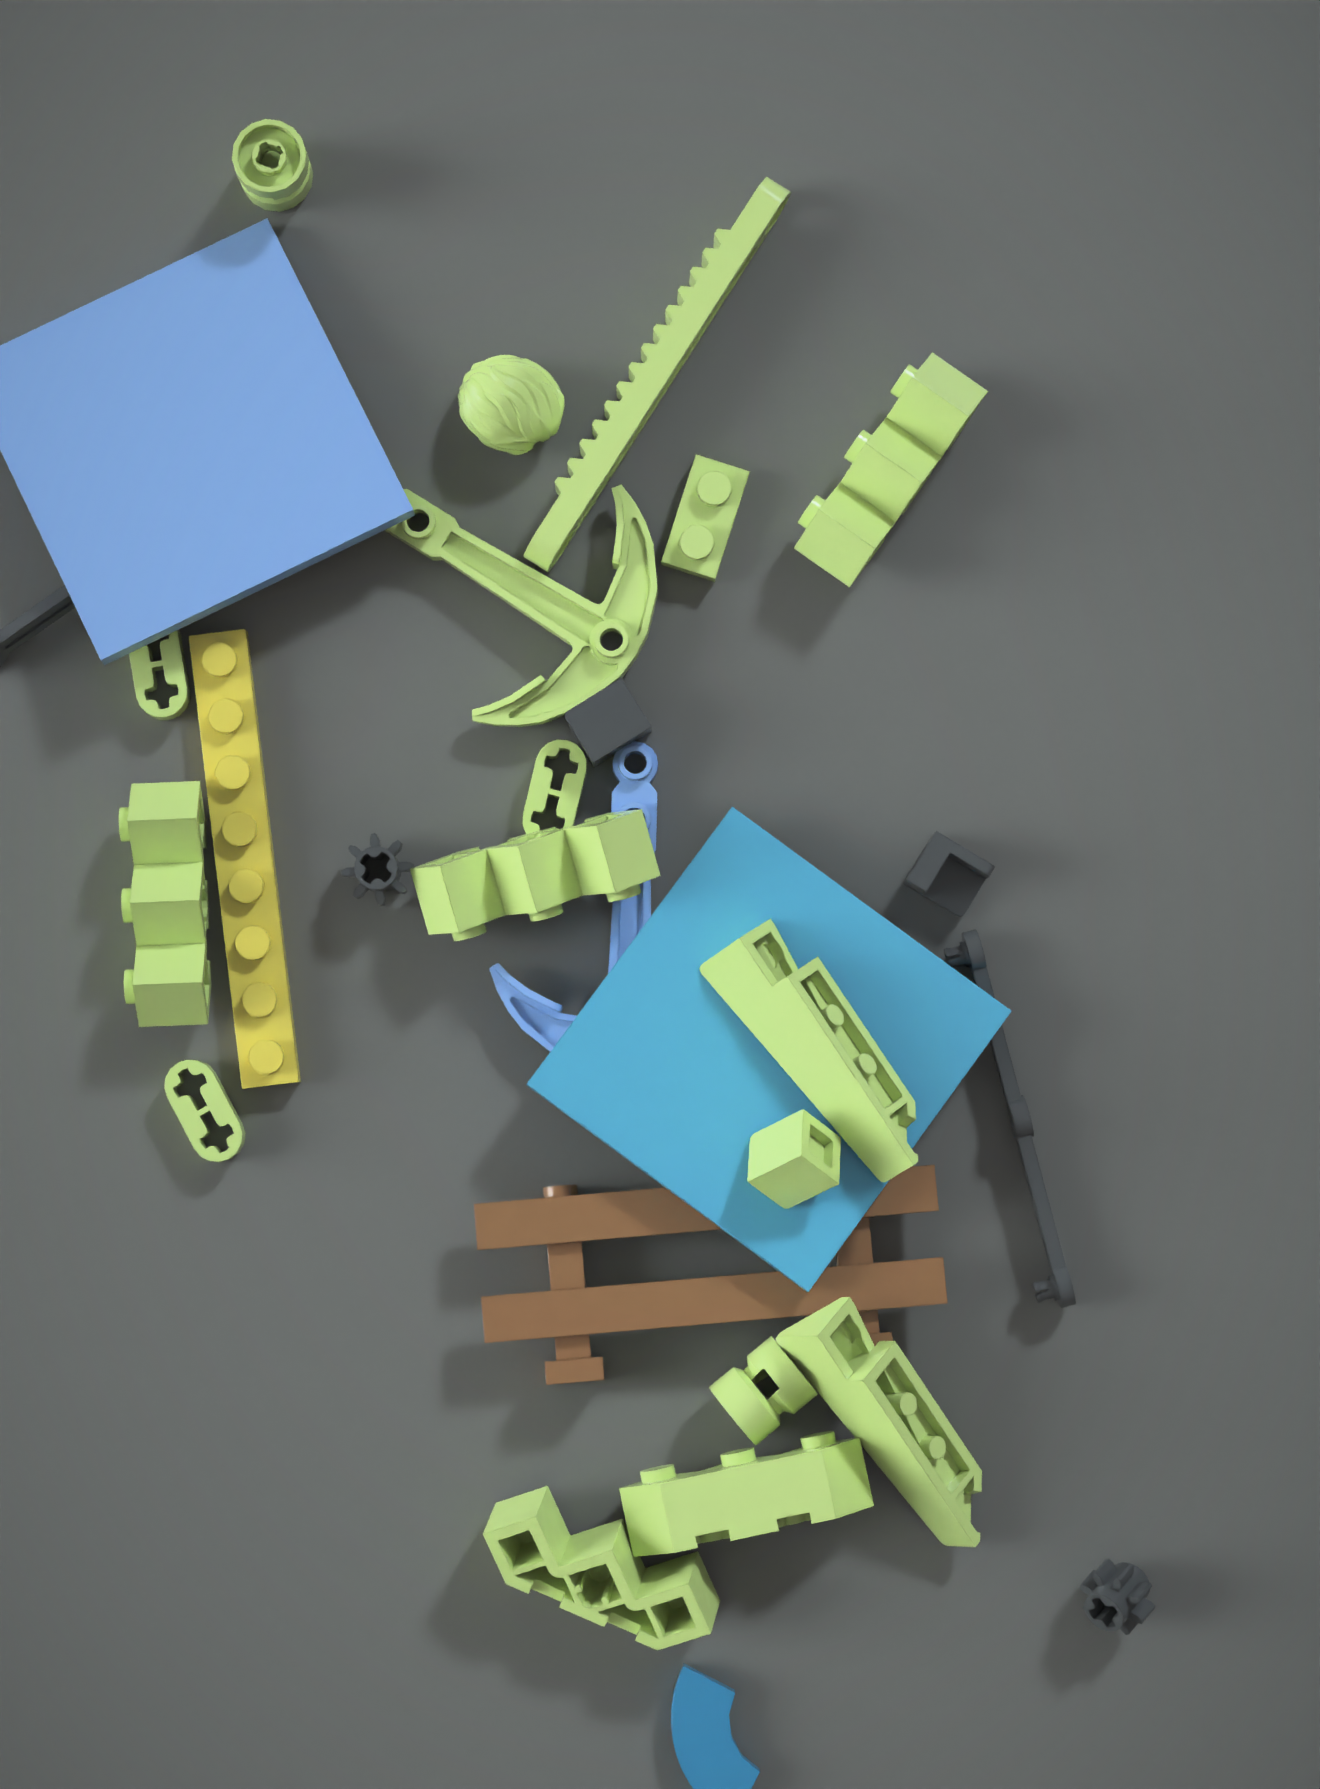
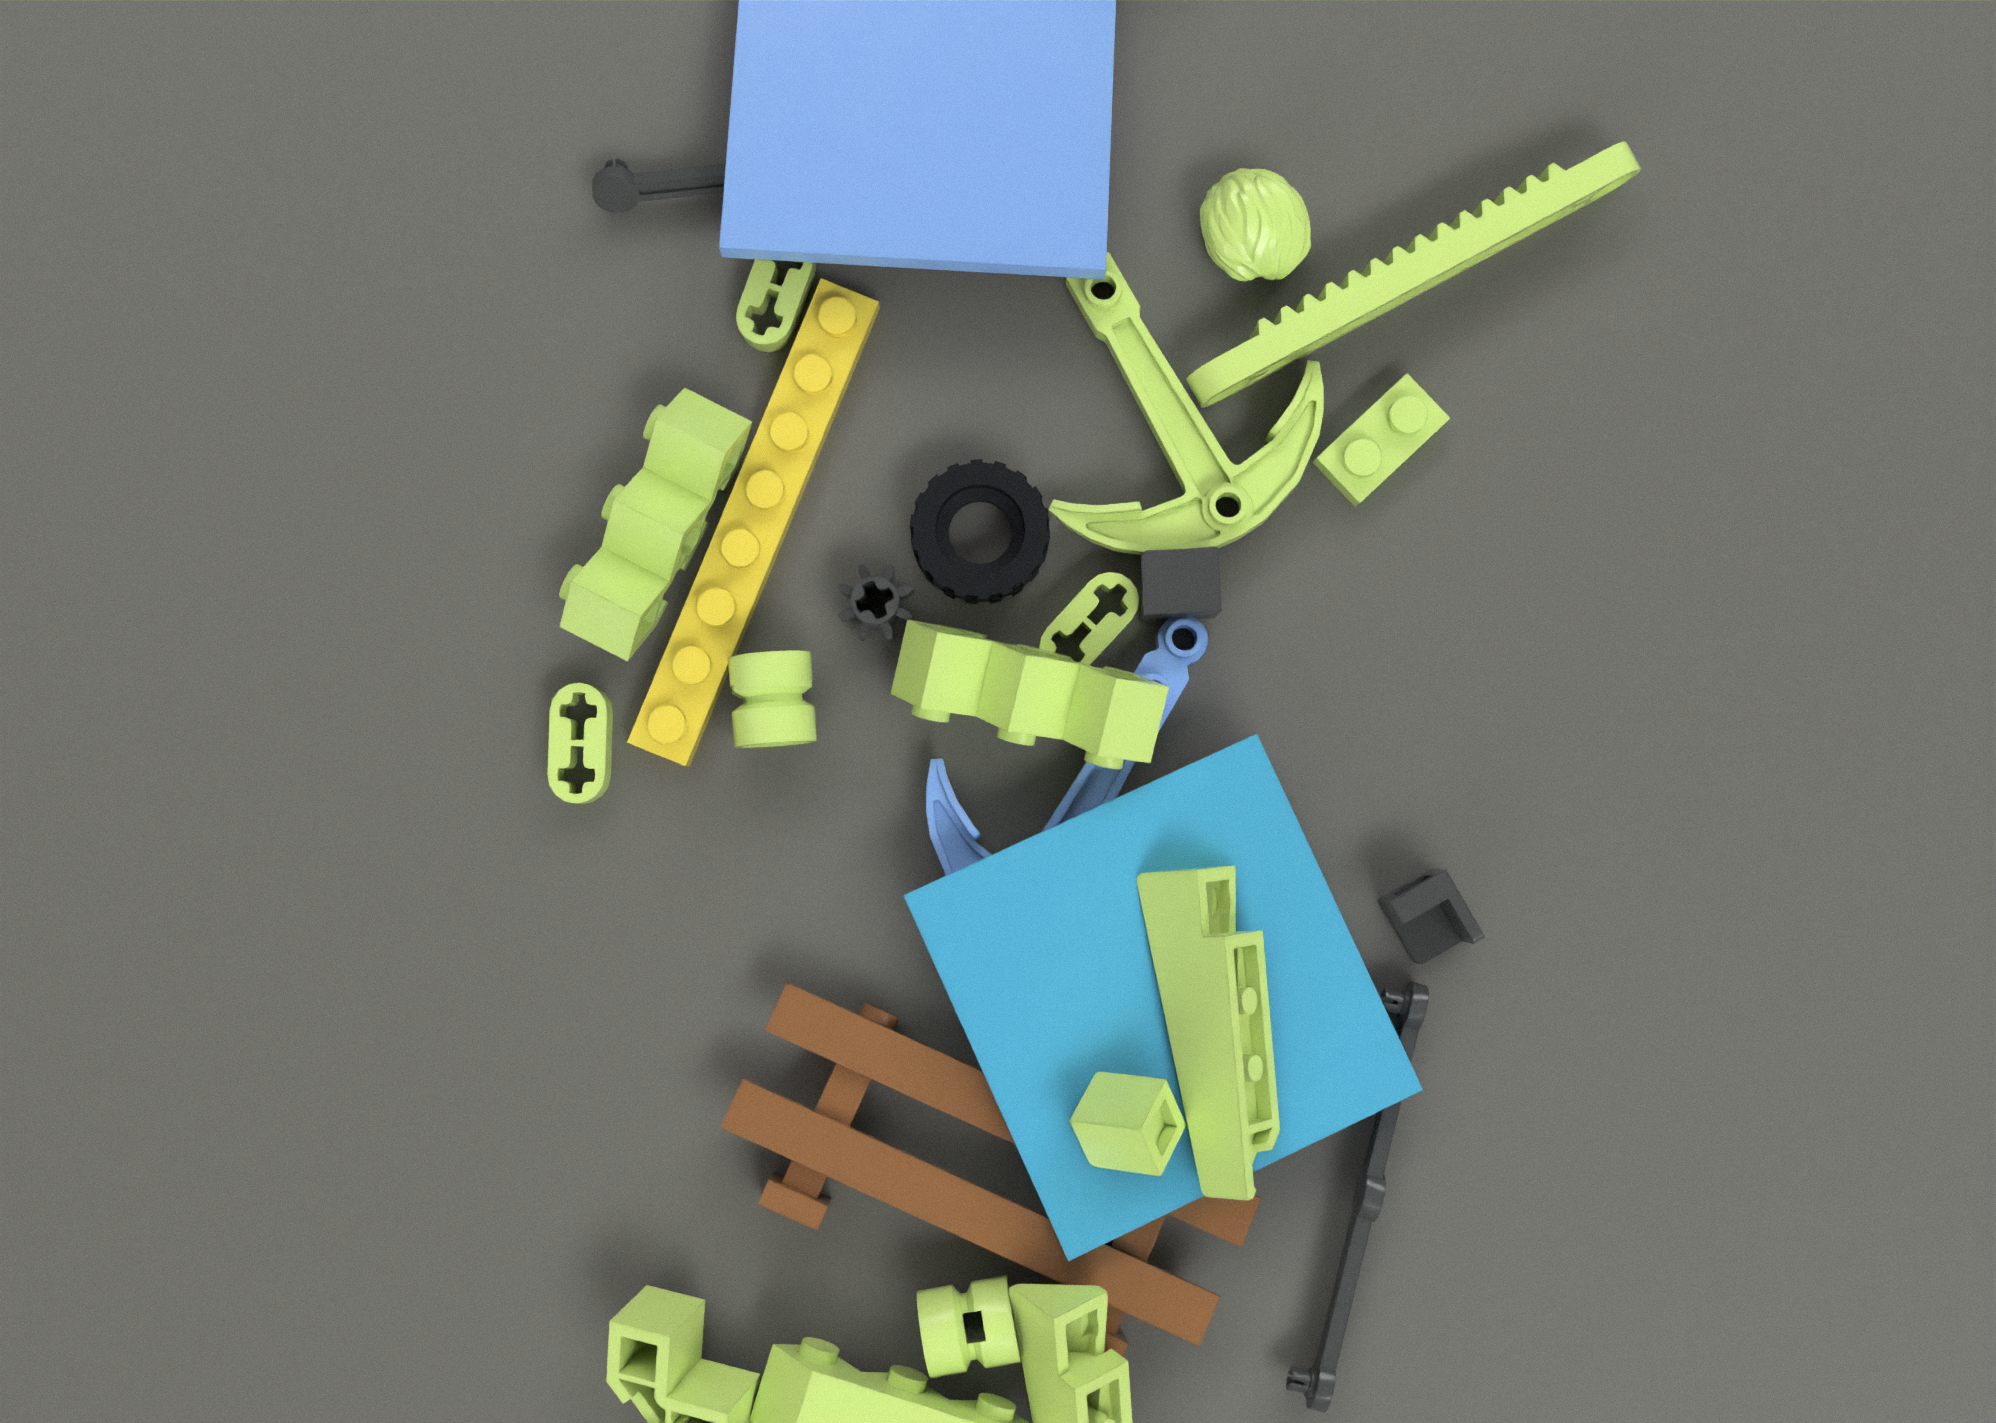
camera: 30 degrees right, 0 degrees up
(338, 990) = (772, 699): none -> yellowish green wheel
(417, 725) = (987, 484): none -> black tyre
(888, 468) = (1591, 488): yellowish green brick -> none

